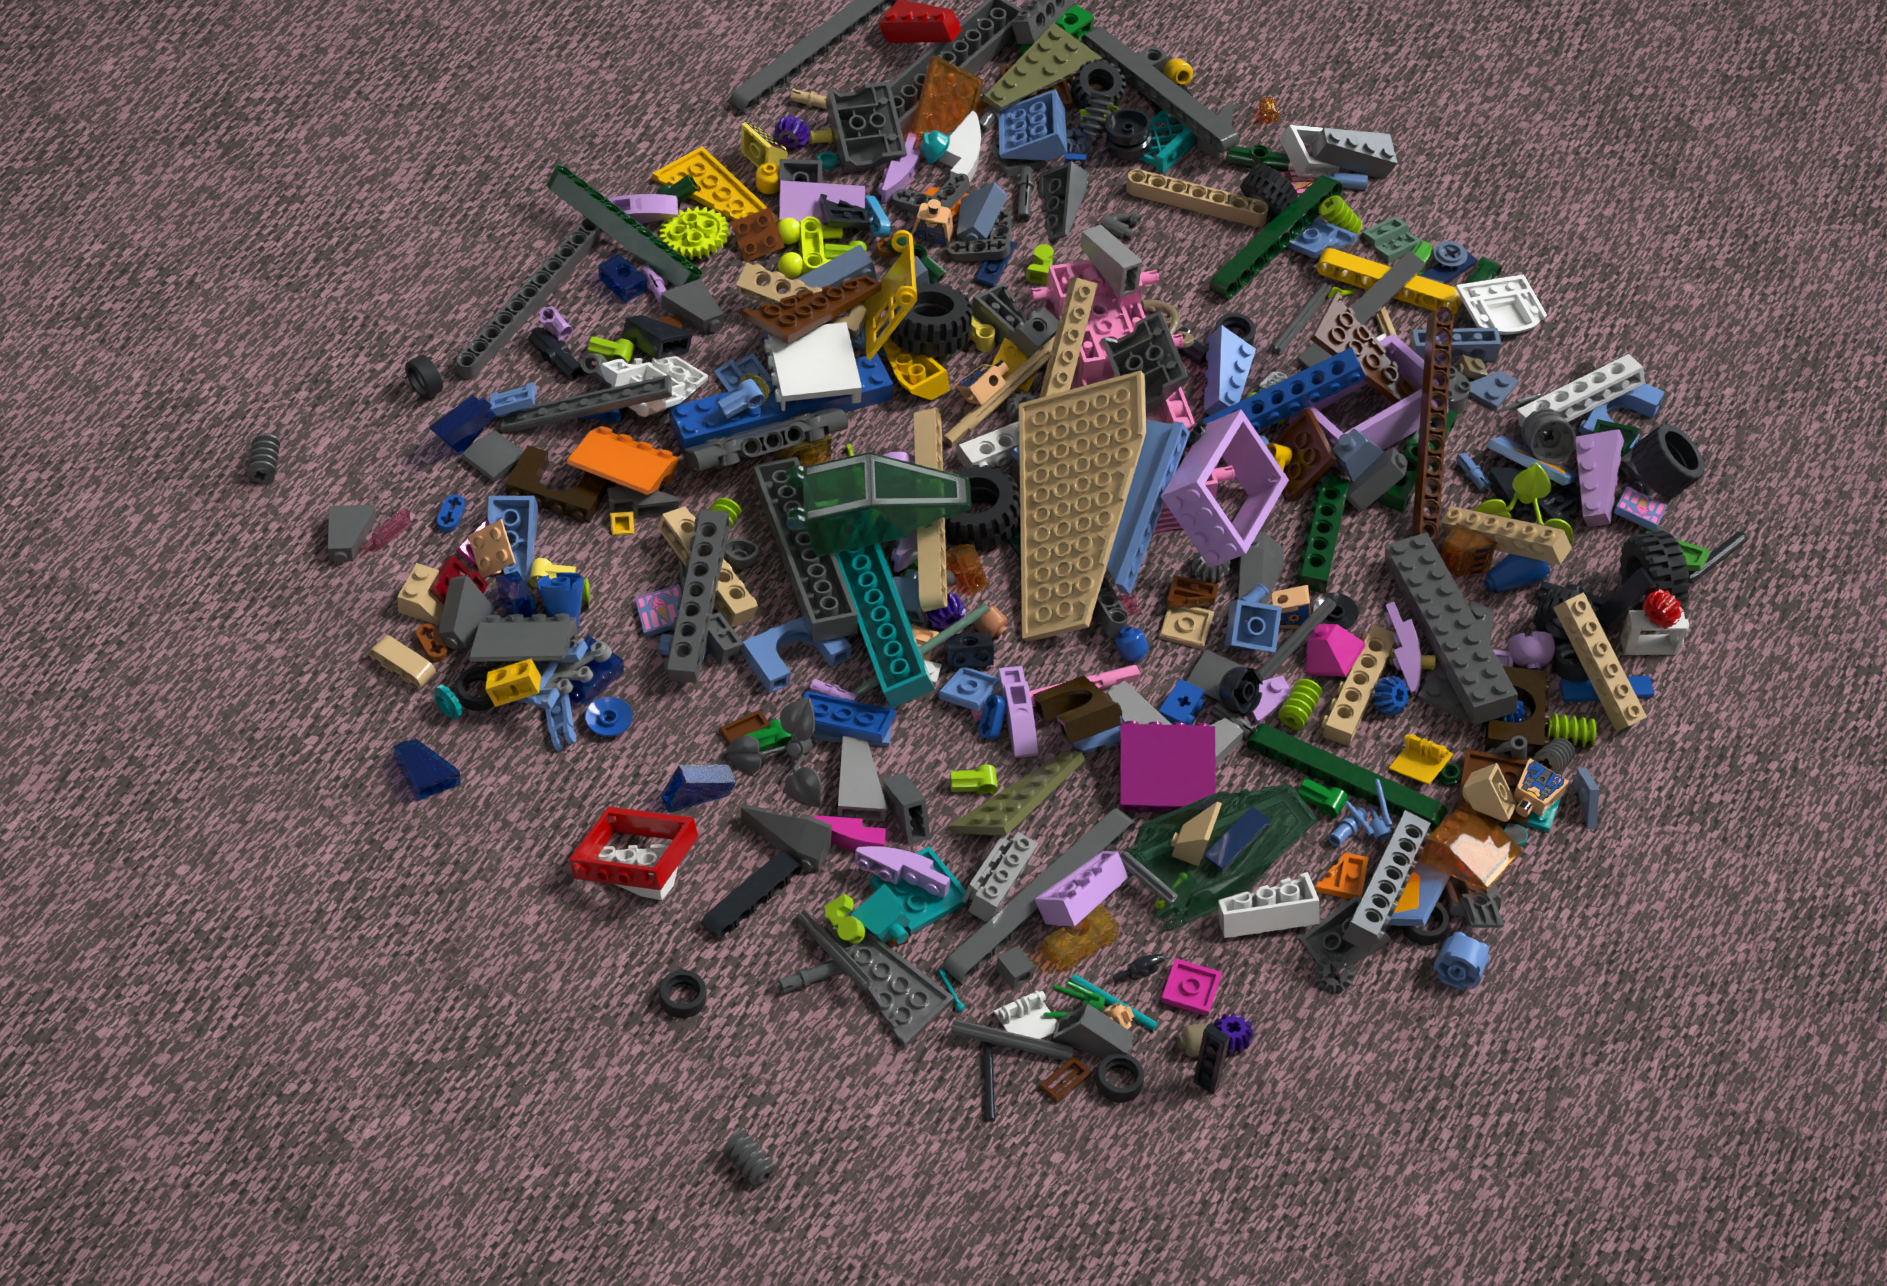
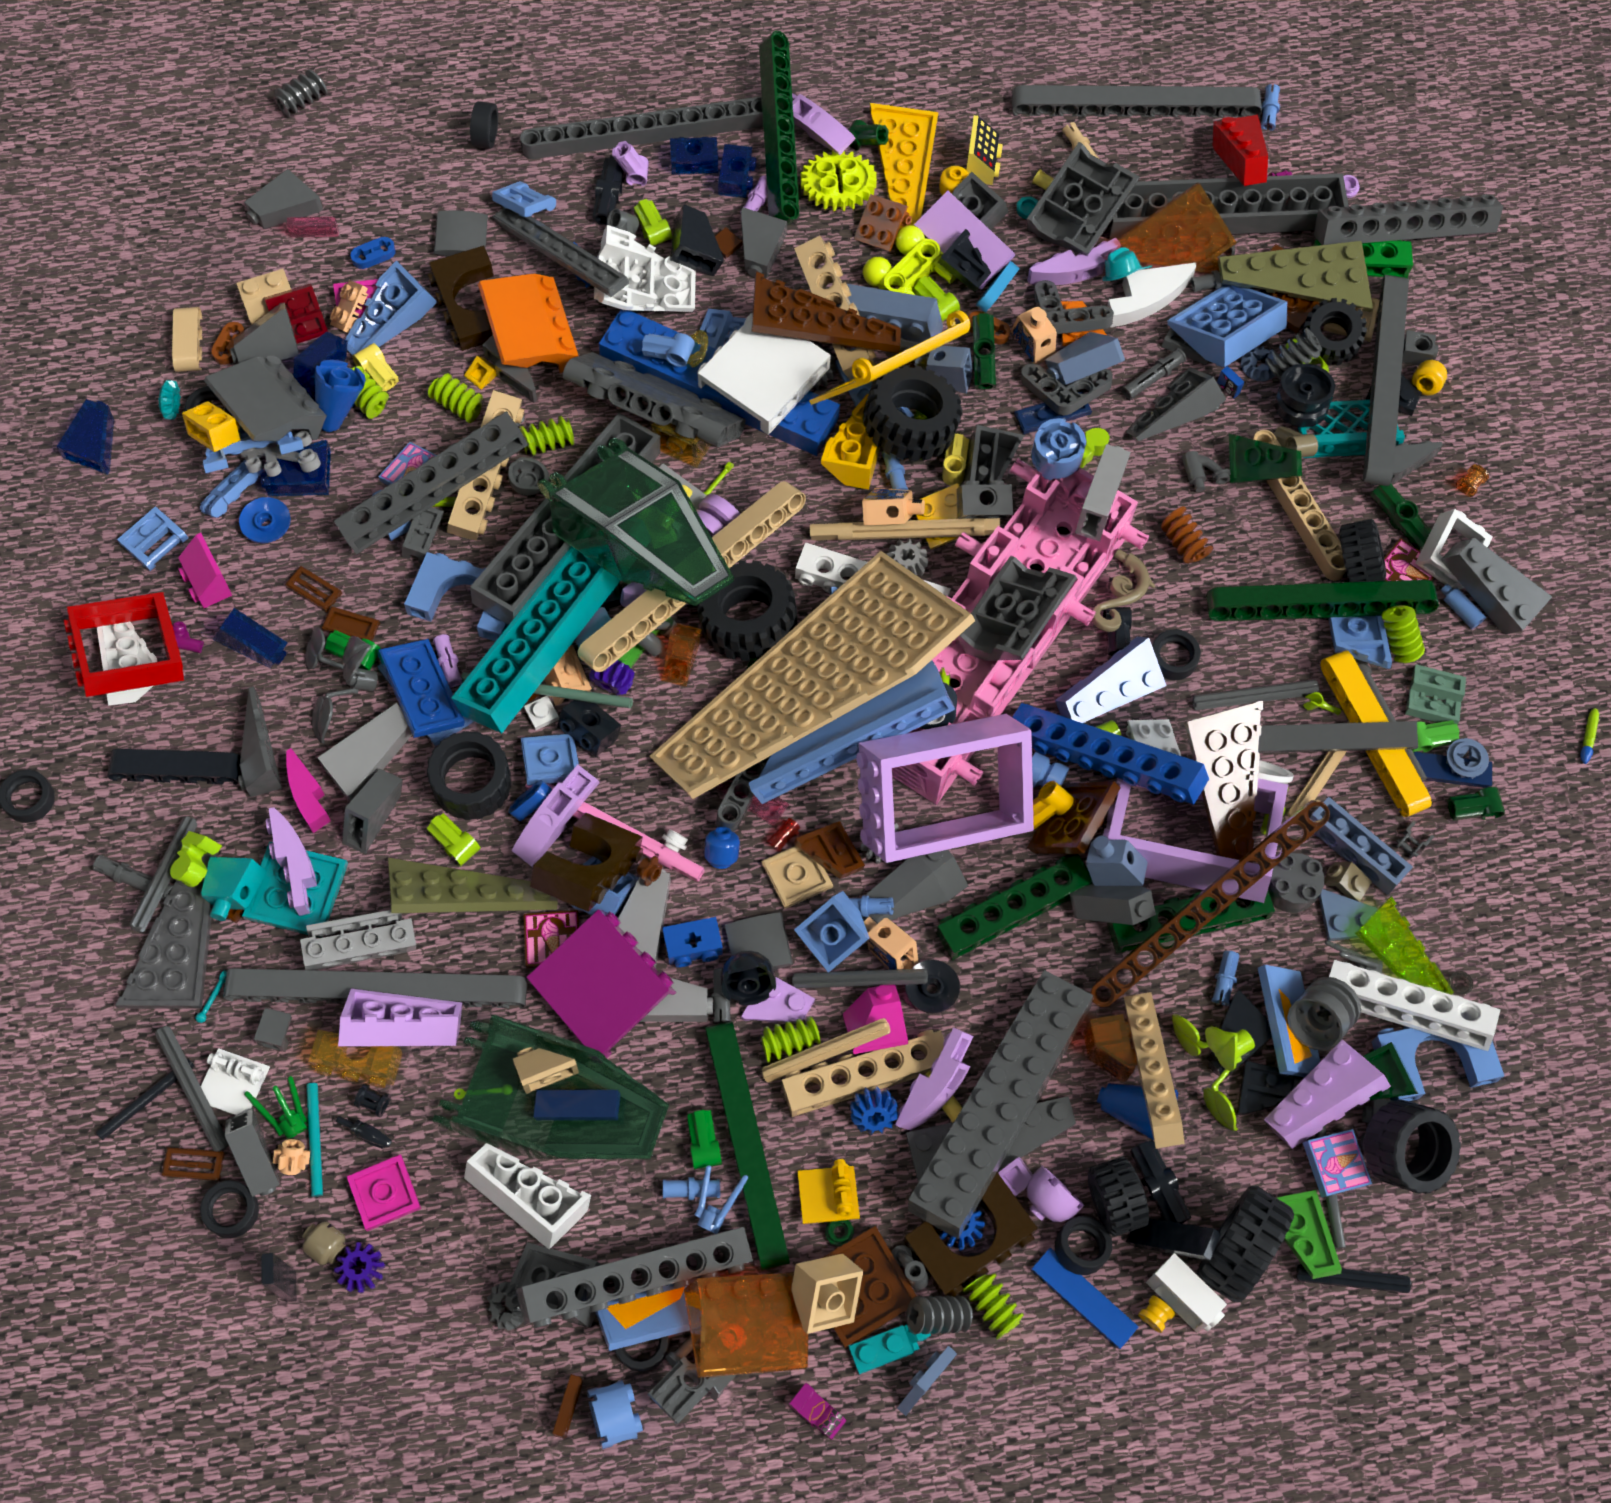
camera: 50 degrees right, 15 degrees up
(464, 423) = (455, 186): clear blue slope -> none
(541, 791) = (147, 533): none -> medium blue plate
(583, 290) = (694, 155): none -> clear blue brick
(618, 772) = (203, 573): none -> dark pink slope
(631, 545) = (456, 397): none -> lime piece
(692, 733) = (330, 600): none -> reddish brown tile
(792, 132) = (1022, 159): dark purple gear -> none
(939, 757) = (460, 747): none -> black tyre
(952, 367) = (894, 471): none -> medium blue pin
(992, 621) = (640, 718): nougat head -> none
(1057, 257) = (1058, 449): none -> medium blue brick
(1068, 337) = (974, 530): tan brick -> none
(1097, 780) = (546, 933): none -> tile
(1099, 665) = (674, 840): none -> white plate
(1116, 684) = (649, 870): none -> reddish brown plate
(1120, 949) = (363, 1099): none -> black bush
(1148, 878) = (464, 1063): dark grey axle -> none
(1151, 604) = (784, 834): none -> clear red pin
(1153, 187) = (1261, 461): none -> dark green wing
(1155, 164) = (1294, 440): none -> dark tan piece
(1162, 265) = (1184, 537): none -> dark orange piece
(1196, 432) = (976, 712): black gear -> none
(1329, 687) = (826, 1050): none -> tan axle
(1345, 878) = (630, 1231): orange wing -> none
(1432, 986) = (568, 1406): none -> reddish brown tile
(1500, 203) = (1590, 734): none -> lime piece
(1502, 304) = (1453, 849): white slope -> none
(1517, 833) = (823, 1347): tile -> none
(1529, 378) = (1397, 947): none -> clear neon green wing
(1538, 789) = (880, 1329): torso -> none
(1553, 865) = (817, 1411): none -> magenta leg
(1600, 662) = (1083, 1274): tan brick -> none
(1650, 660) = (1156, 1314): none -> yellow wheel
(1662, 609) = (1194, 1287): red gear -> none

